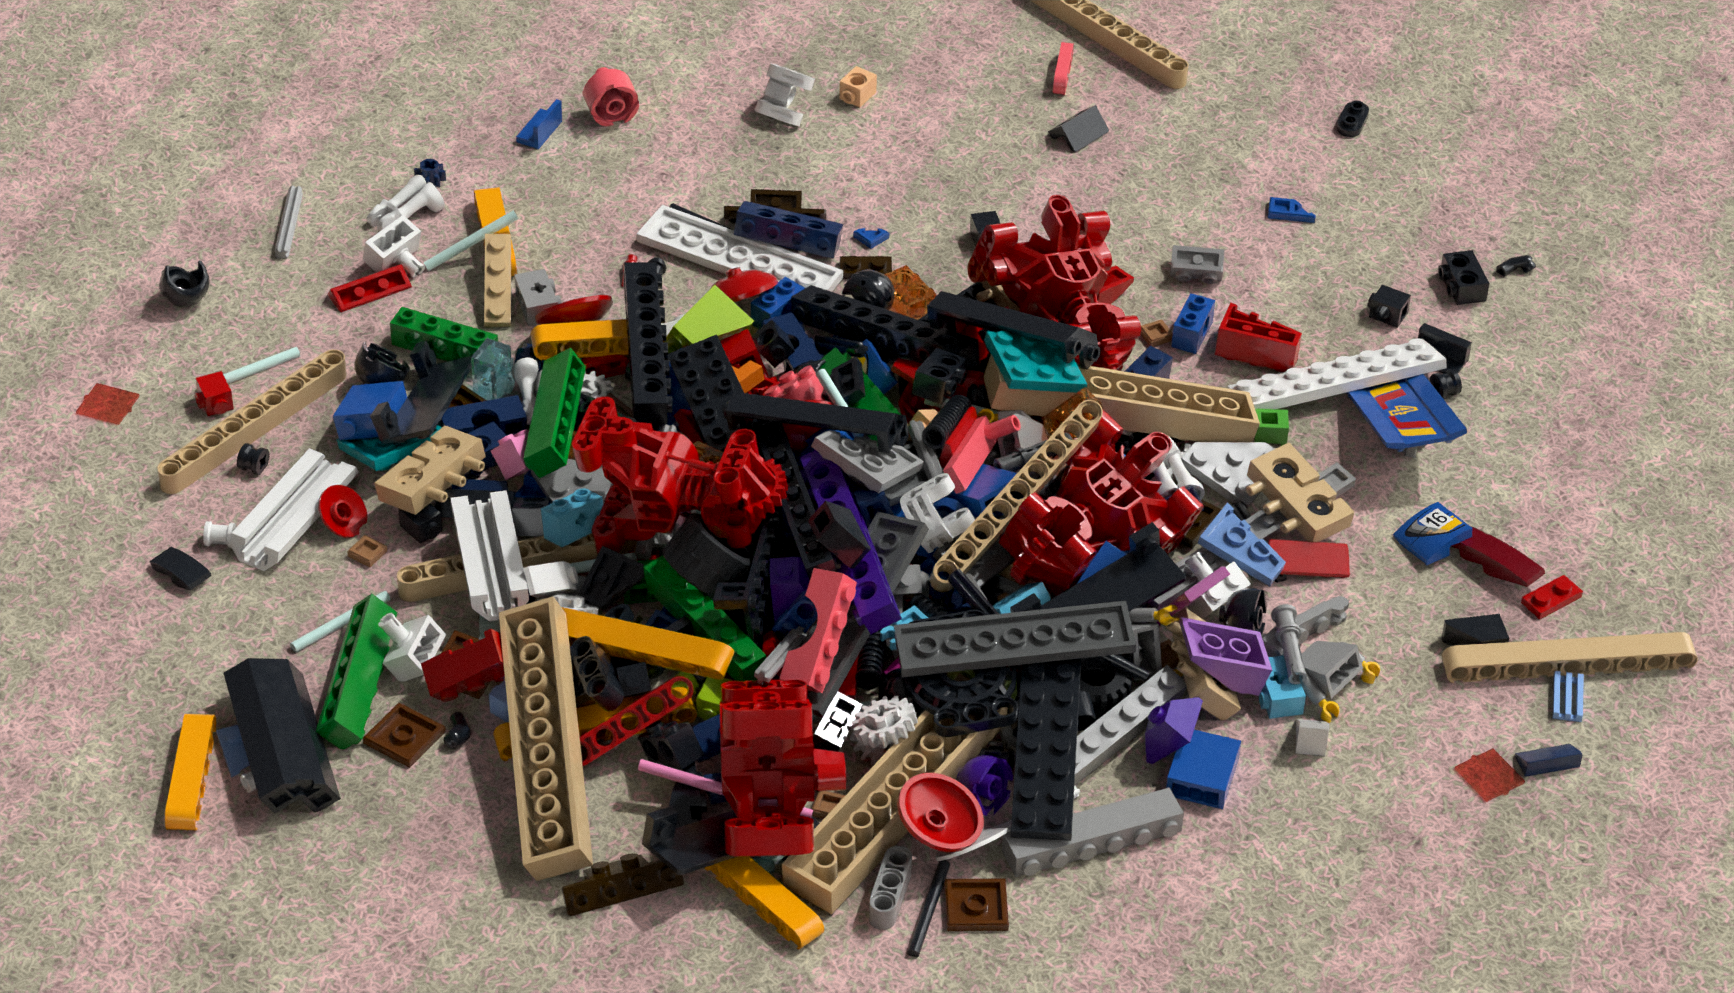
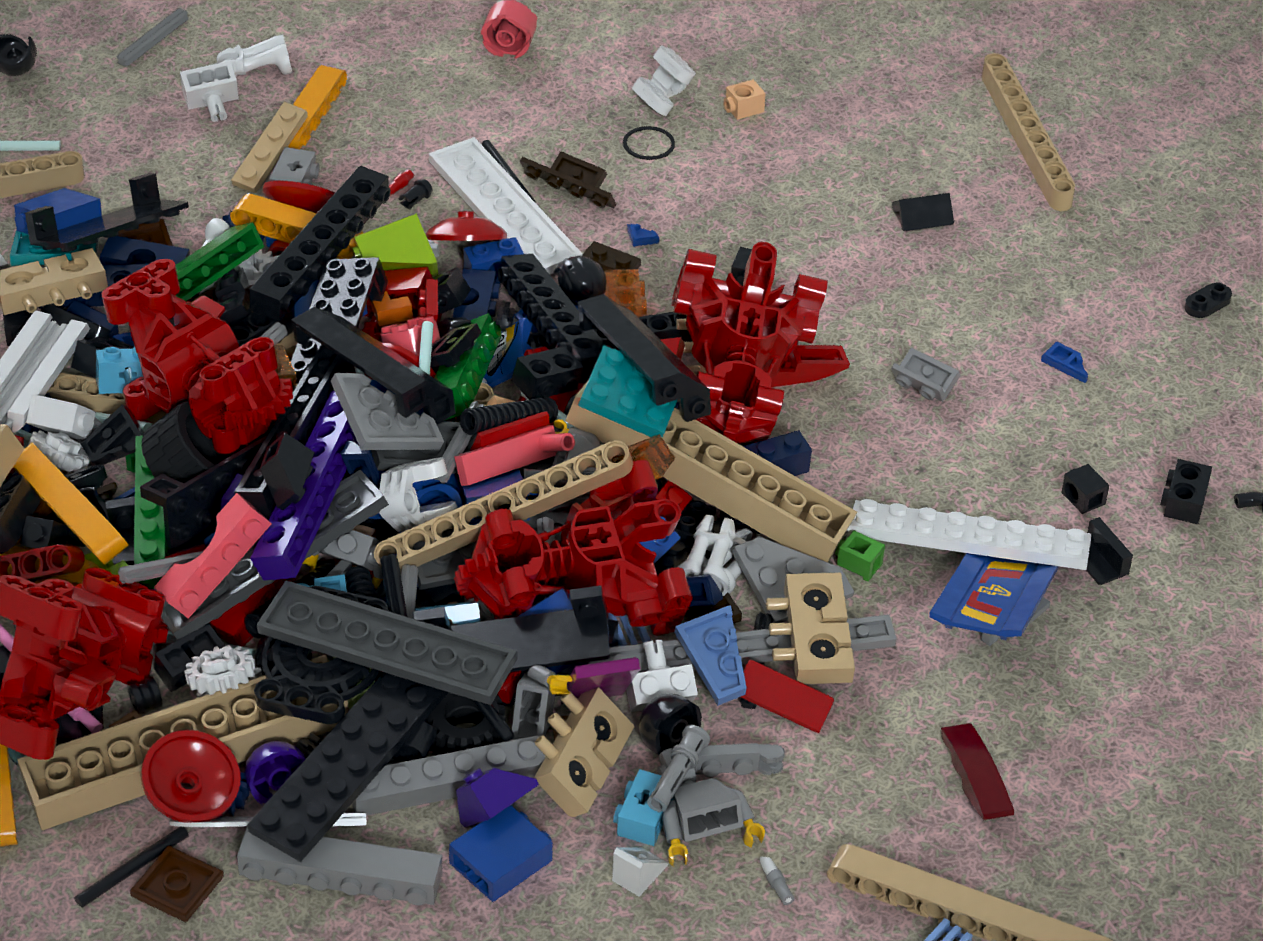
camera: 30 degrees right, 0 degrees up
(369, 288) = (166, 115): red slope -> none
(379, 365) = (102, 180): black cylinder -> none
(431, 171) = (301, 39): dark blue gear -> none
(444, 337) = (181, 180): green brick -> none
(470, 240) = (275, 105): light aqua bar -> none
(492, 370) = (188, 218): clear light blue brick -> none
(541, 126) = (435, 33): blue panel -> none
(778, 360) = (428, 300): none -> red plate
(788, 229) = (562, 198): dark blue brick -> none
(805, 169) = (649, 157): none -> black piece
(890, 887) = (108, 829): light grey beam -> none
(1063, 68) = (954, 150): coral beam -> none
(1156, 333) = (832, 424): medium nougat tile -> none
(1193, 323) = (869, 428): blue brick -> none
(1228, 654) = (597, 748): medium lavender slope -> none
(1257, 342) = (914, 467): red wedge -> none
(1413, 698) = (776, 880): none -> light grey piece
(1432, 533) = (934, 723): blue slope -> none
(1446, 383) = (1078, 586): black wheel -> none
(1474, 630) = (892, 840): black slope -> none
(1551, 597) = (1010, 842): red plate -> none

